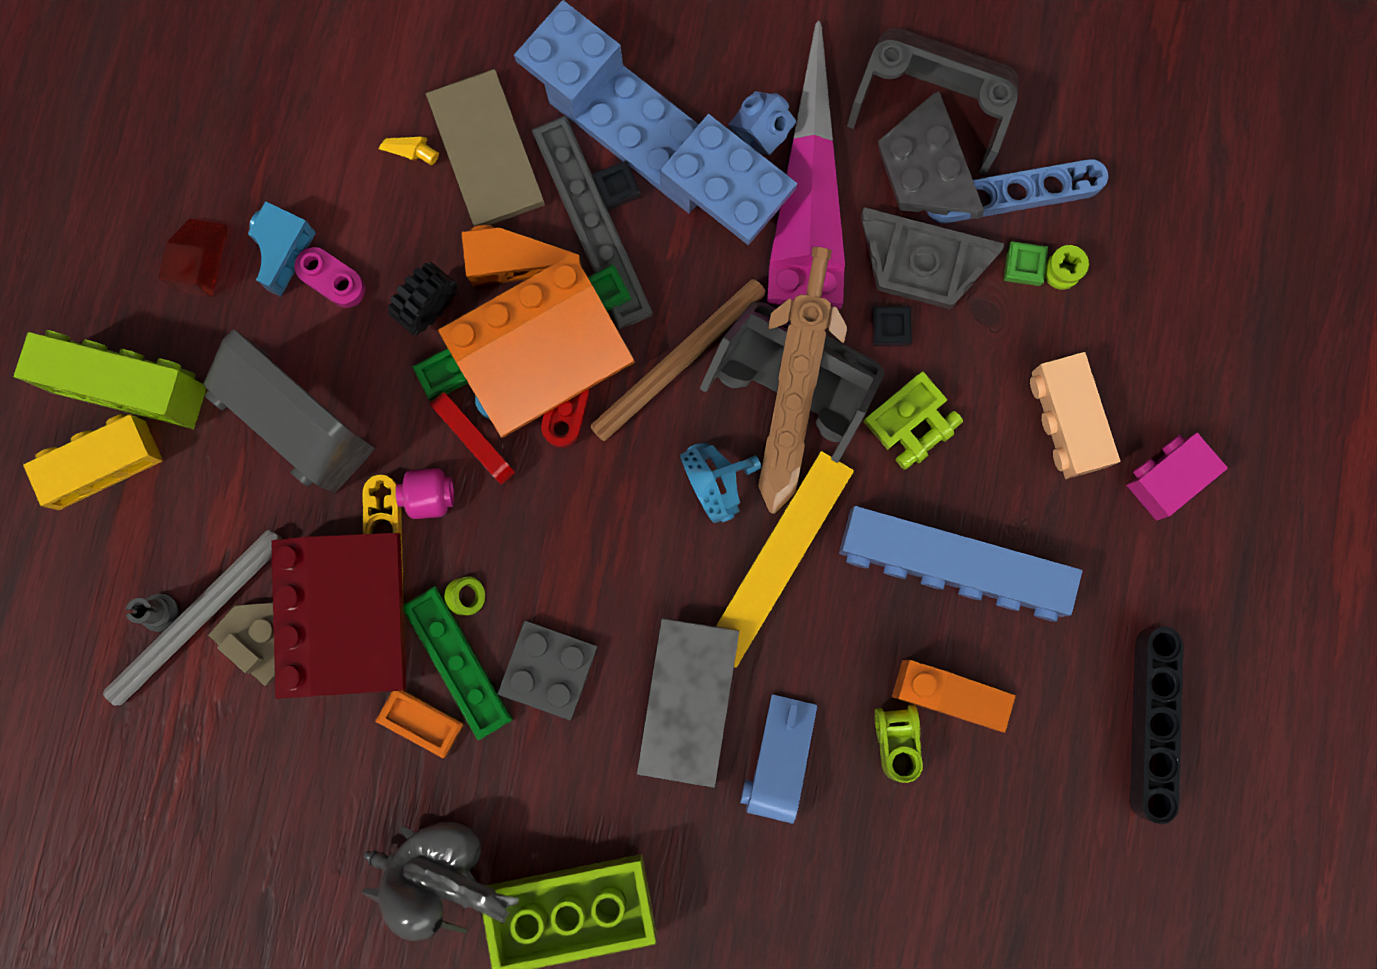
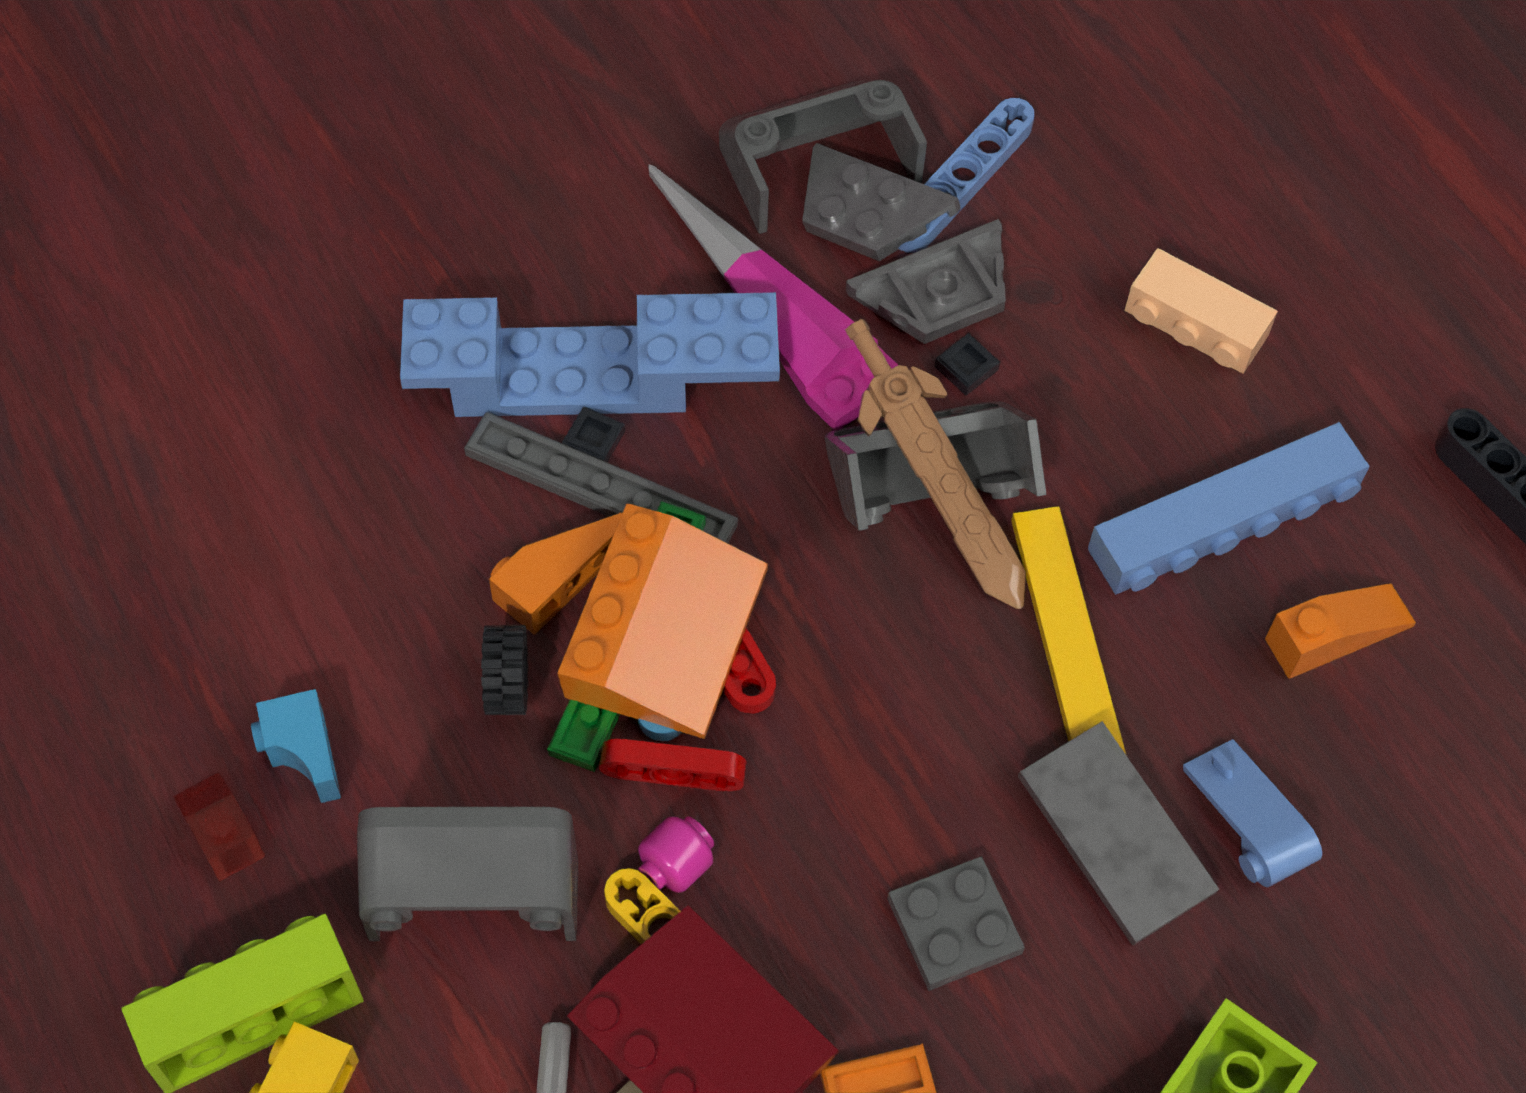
camera: 45 degrees left, 20 degrees down
(328, 276) = (379, 737): dark pink plate -> none
(411, 148) = (353, 555): yellow bar -> none
(452, 600) = (796, 933): lime piece -> none
(457, 663) = (863, 994): green tile -> none
(485, 149) = (432, 500): dark tan tile -> none
(677, 360) = (802, 544): medium nougat axle -> none
(703, 480) = (946, 606): dark azure helmet -> none
(763, 121) = (685, 270): medium blue brick -> none
(898, 740) = (1335, 703): lime piece -> none
(904, 412) = (1056, 408): lime plate -> none
(1025, 263) = (1030, 226): bright green tile -> none
(1062, 275) = (1073, 212): lime wheel -> none
(1176, 476) = (1331, 293): dark pink brick -> none

